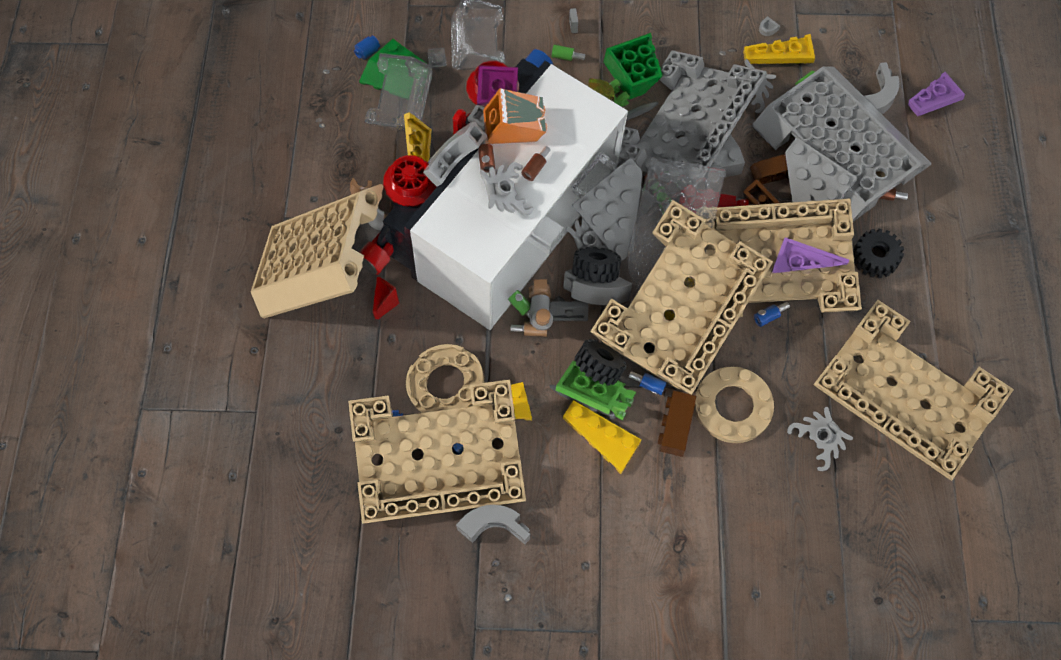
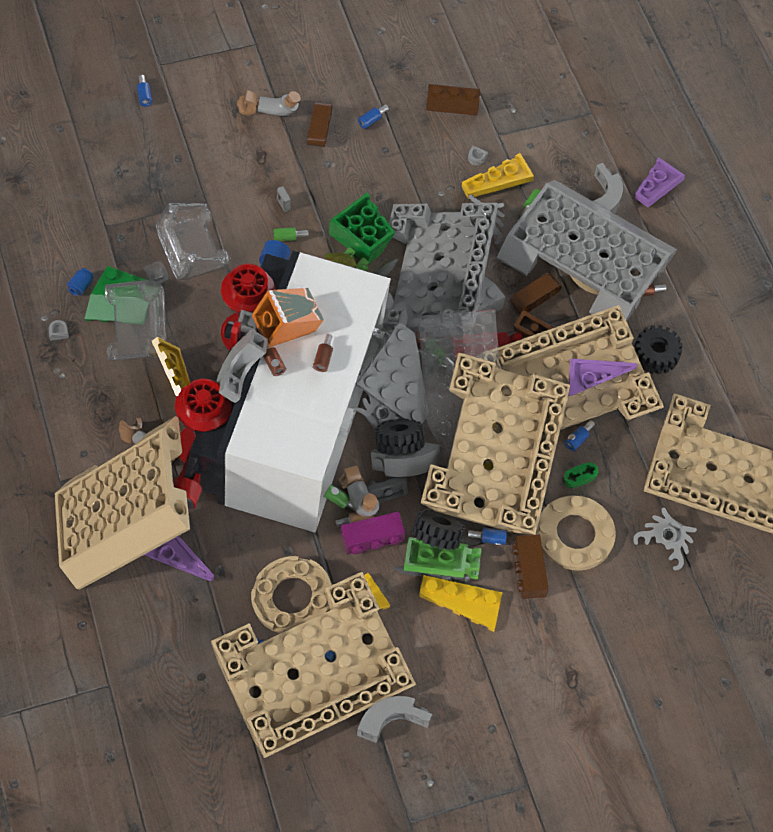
camera: 25 degrees left, 5 degrees down
(333, 85) = (58, 330): none -> light grey tile
(357, 311) = (180, 556): none -> medium lavender wing
(385, 298) = (200, 530): red slope -> none
(493, 78) = (254, 284): magenta tile -> none
(501, 189) = (301, 387): light grey animal -> none
(540, 347) = (372, 533): none -> magenta brick
(758, 351) = (579, 473): none -> green beam
(814, 175) = (576, 291): light grey plate -> none

